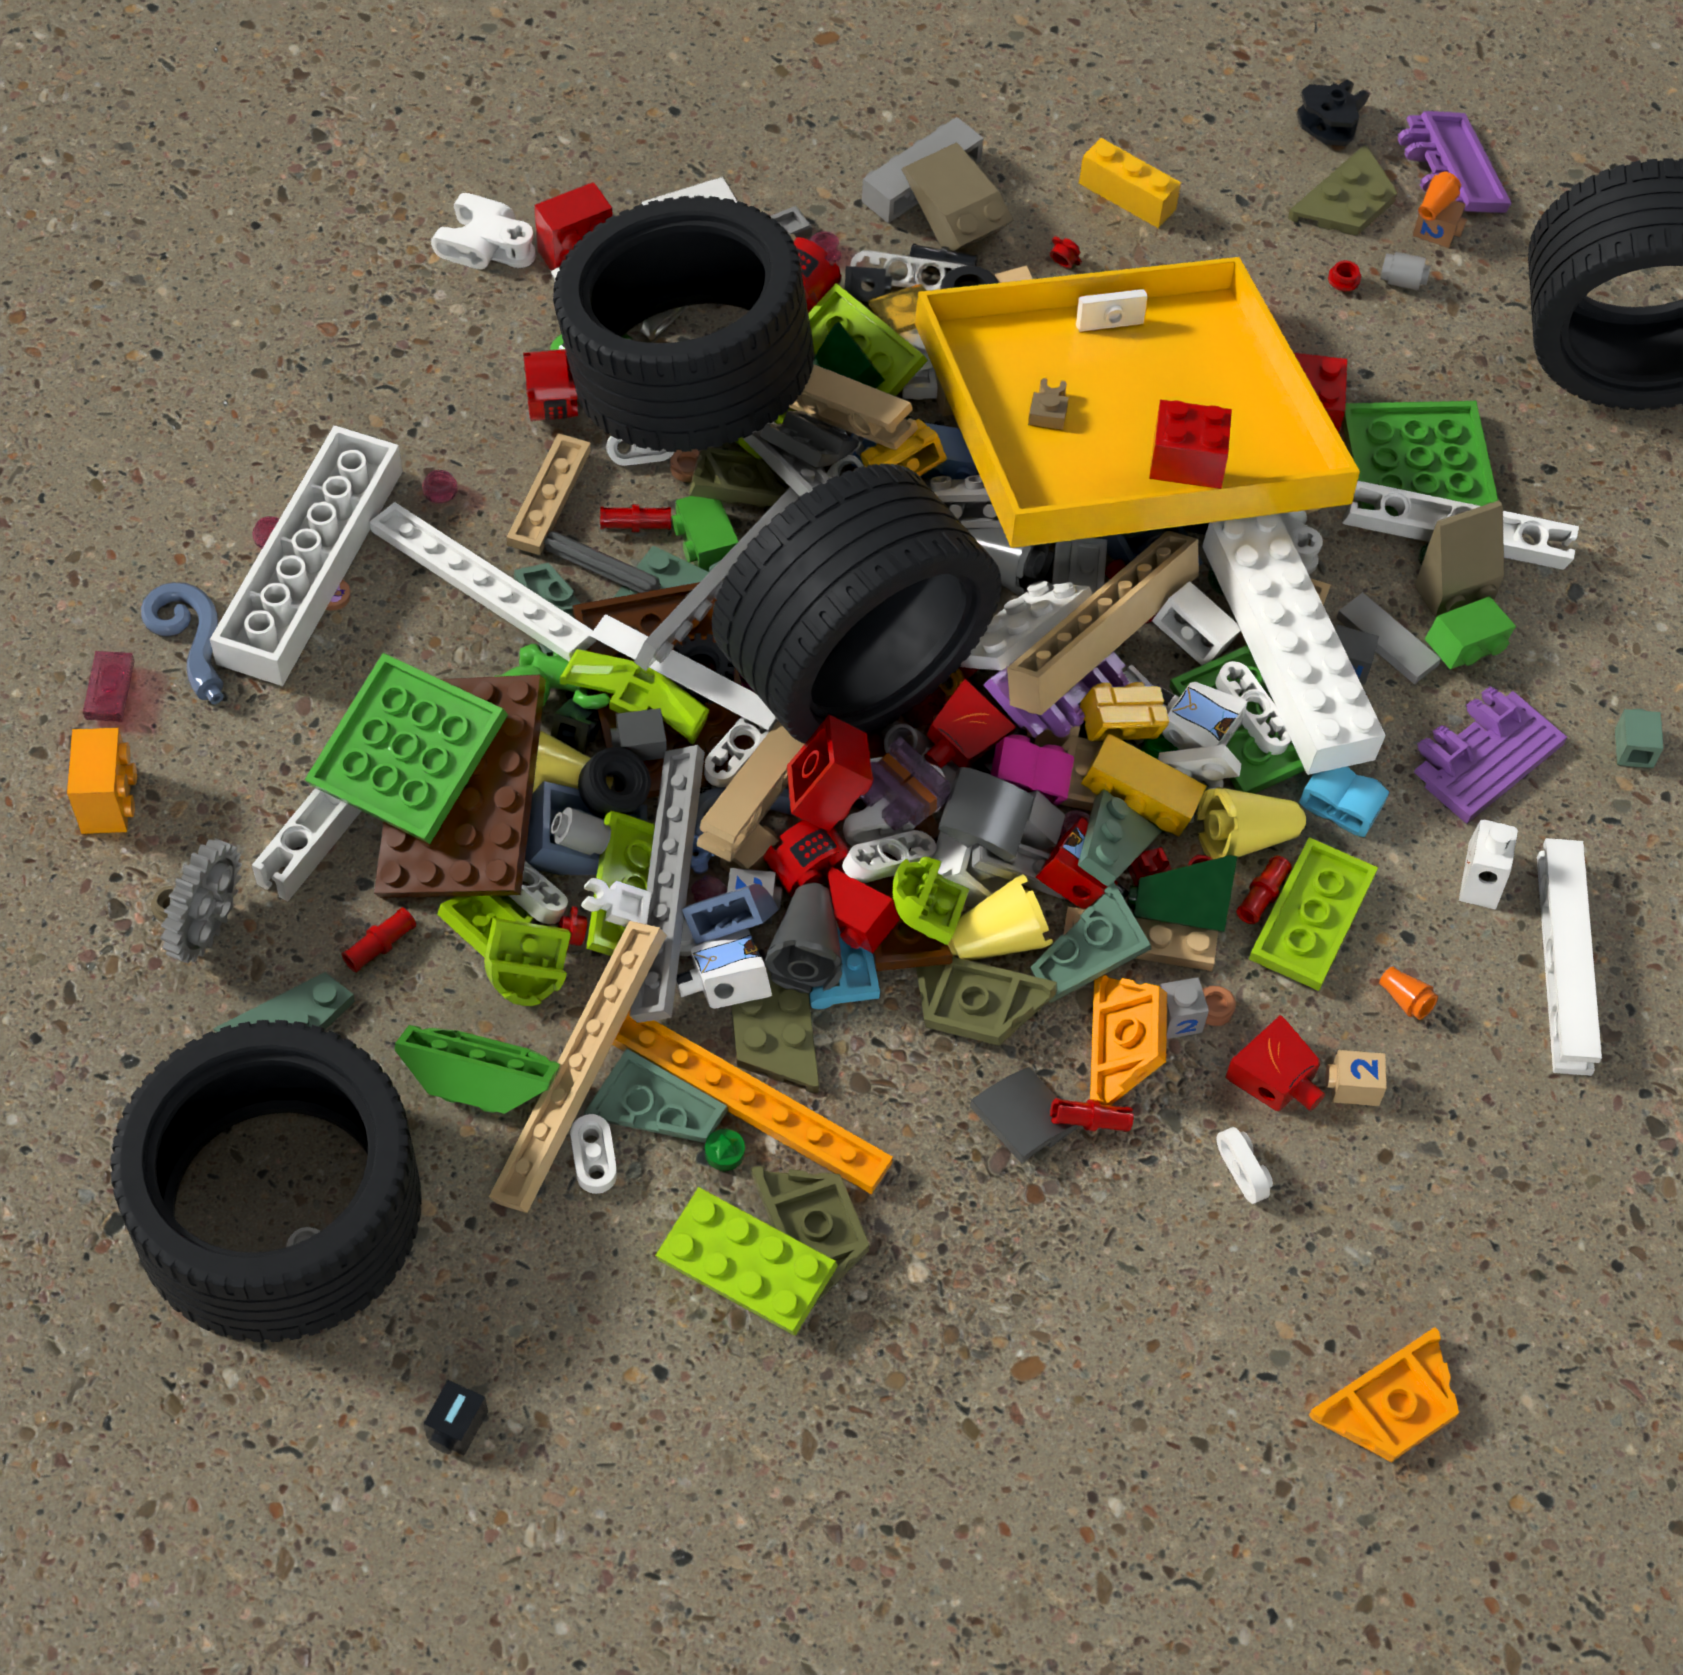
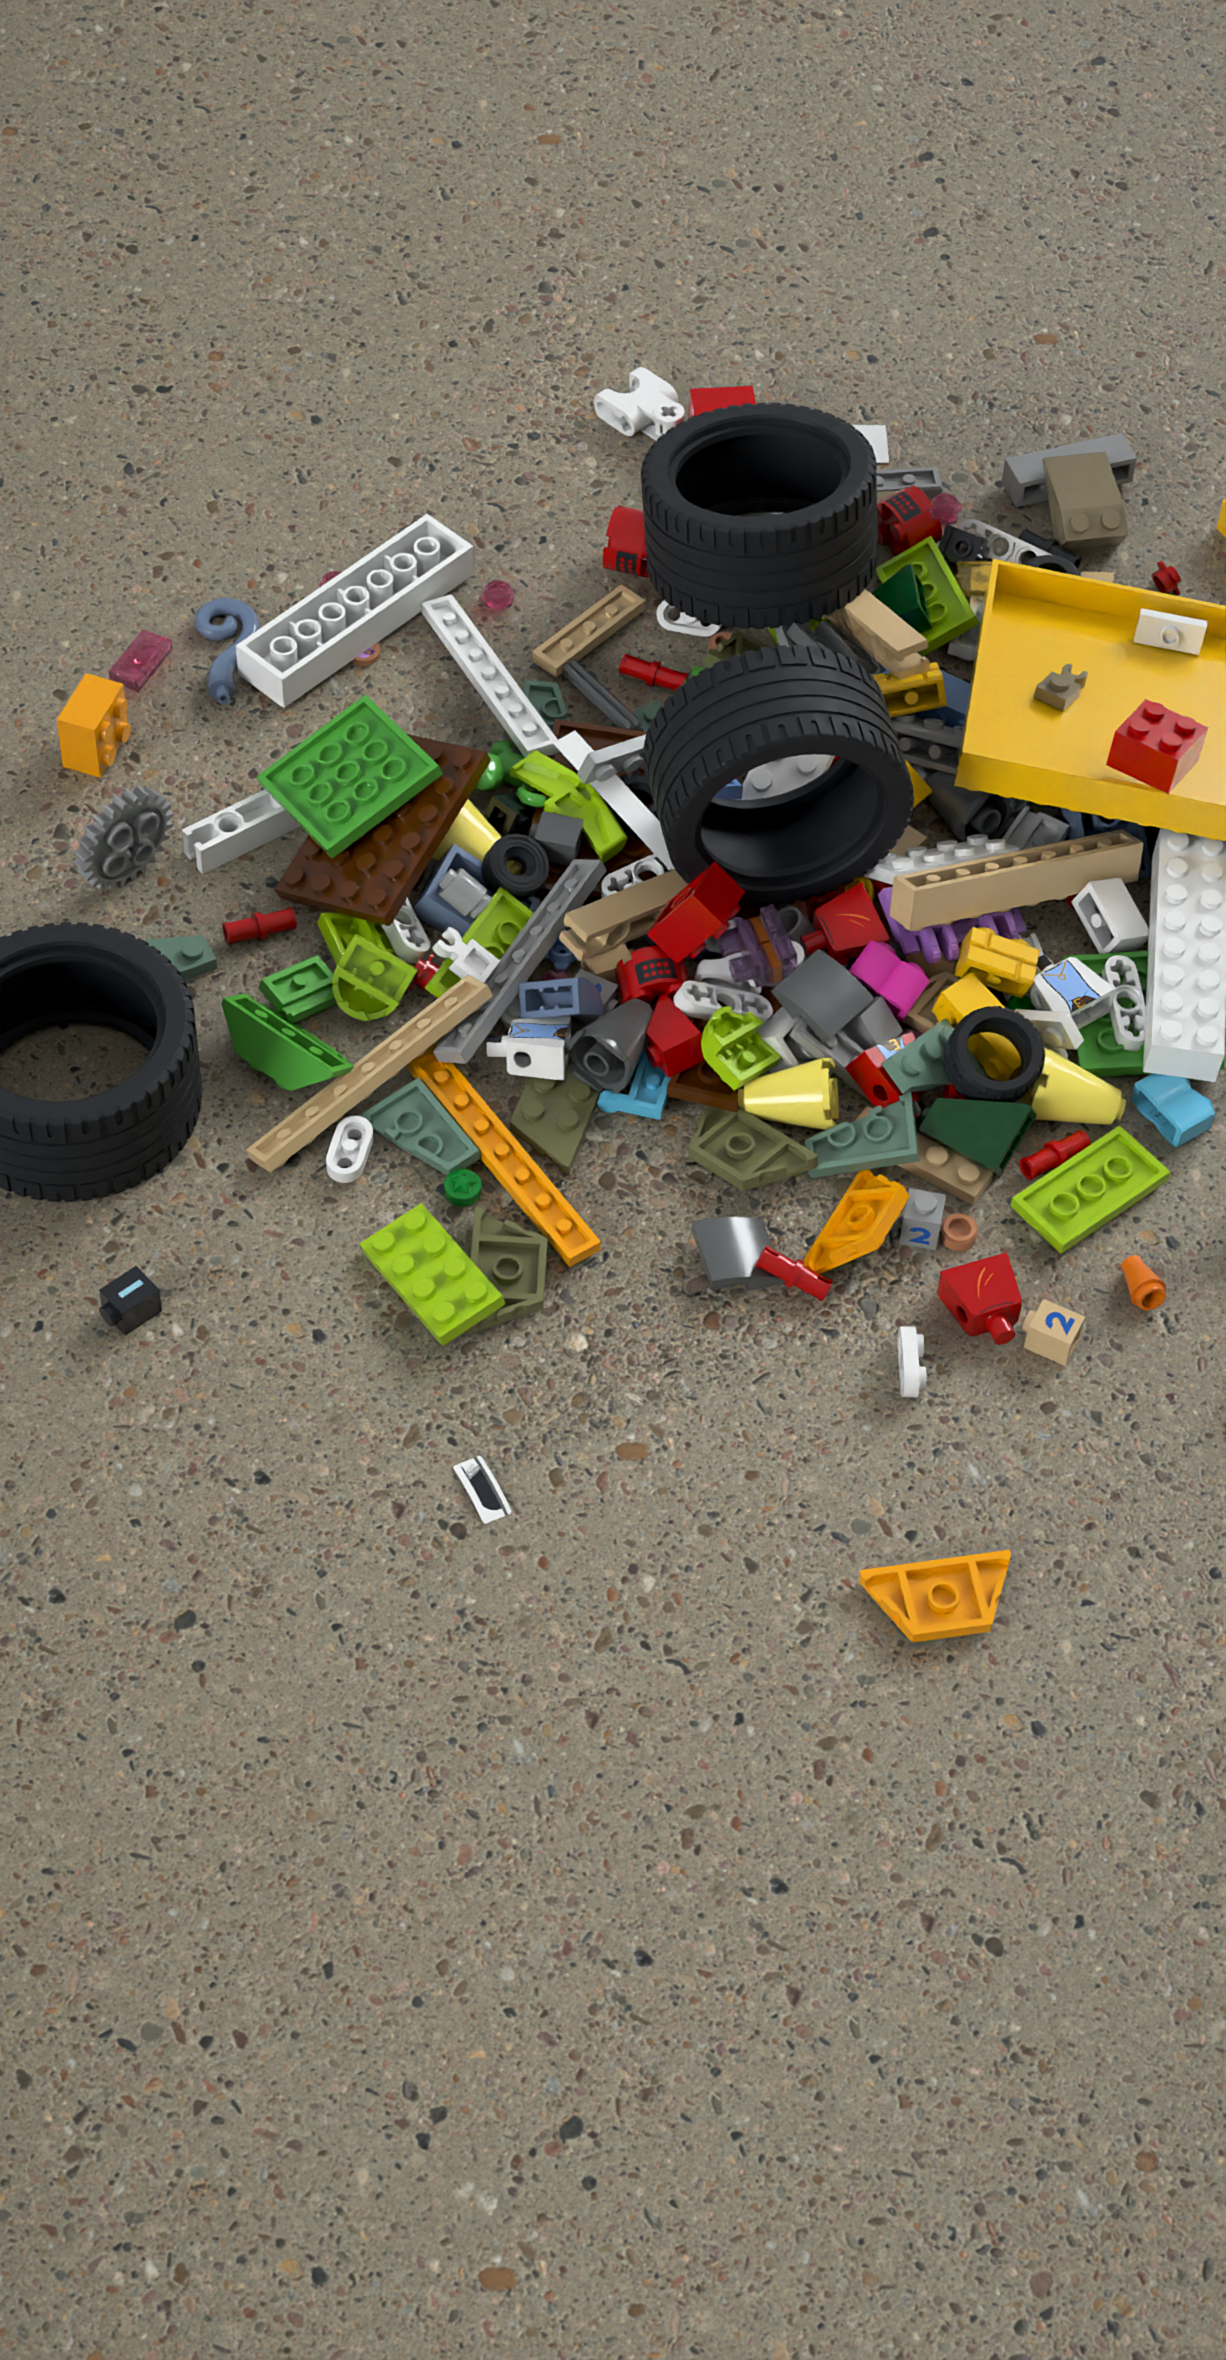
camera: 25 degrees right, 5 degrees down
(458, 995) = (300, 989): none -> bright green plate
(906, 1473) = (483, 1489): none -> sticker
(1204, 797) = (1009, 1025): none -> black tyre

